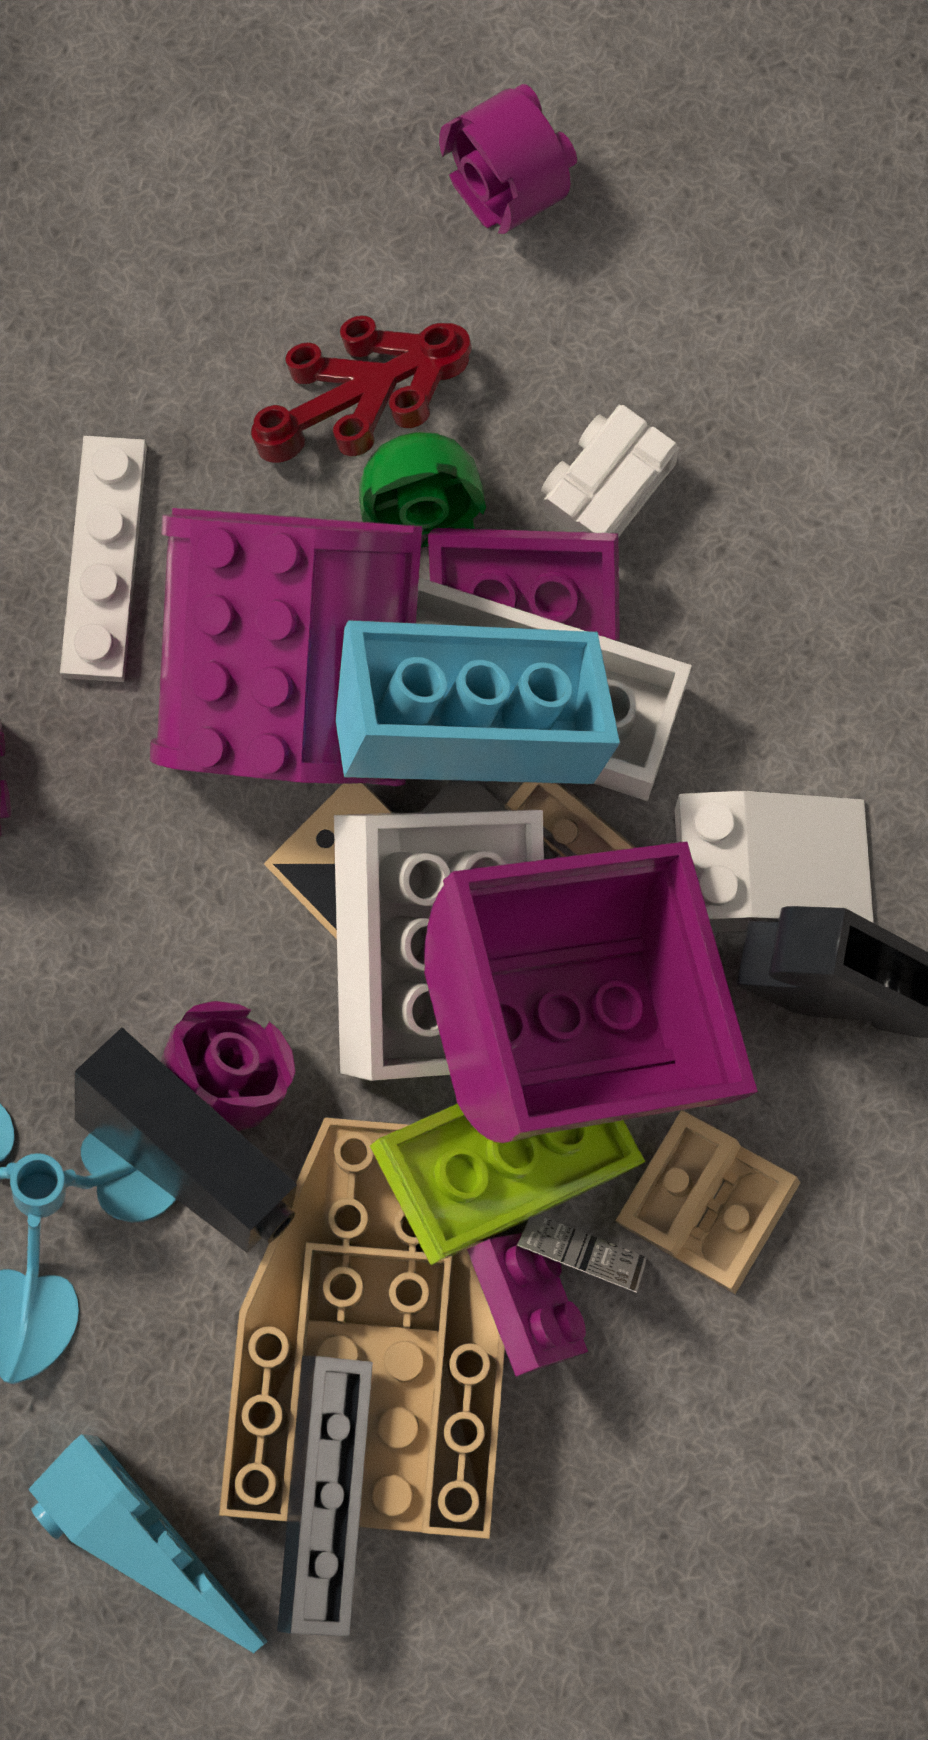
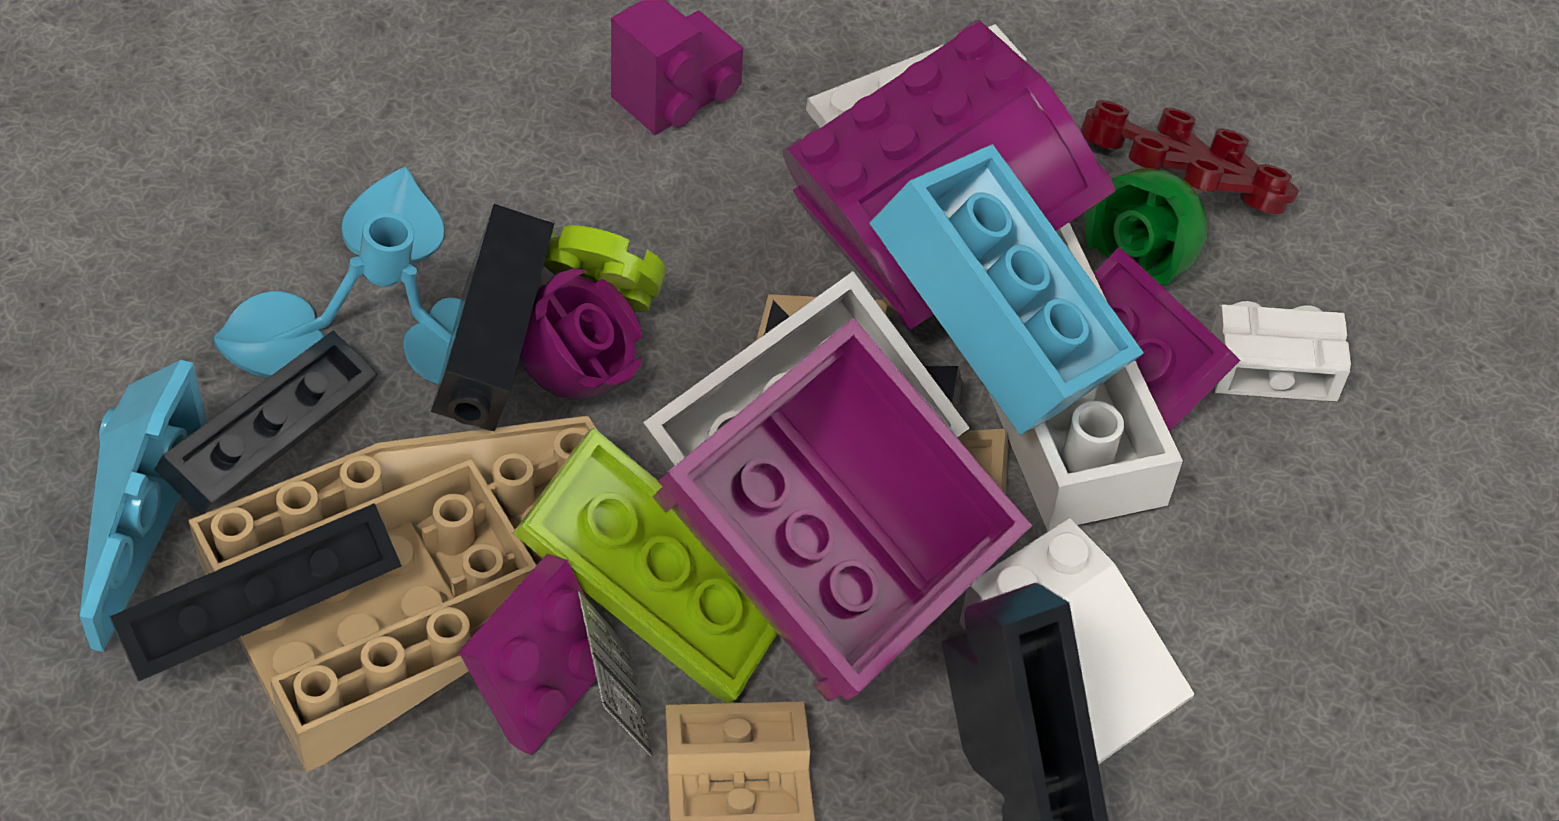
camera: 50 degrees right, 25 degrees down
(144, 1388) = (265, 423): none -> black plate
(163, 995) = (606, 258): none -> lime plate
(508, 158) = (1451, 145): magenta brick -> none

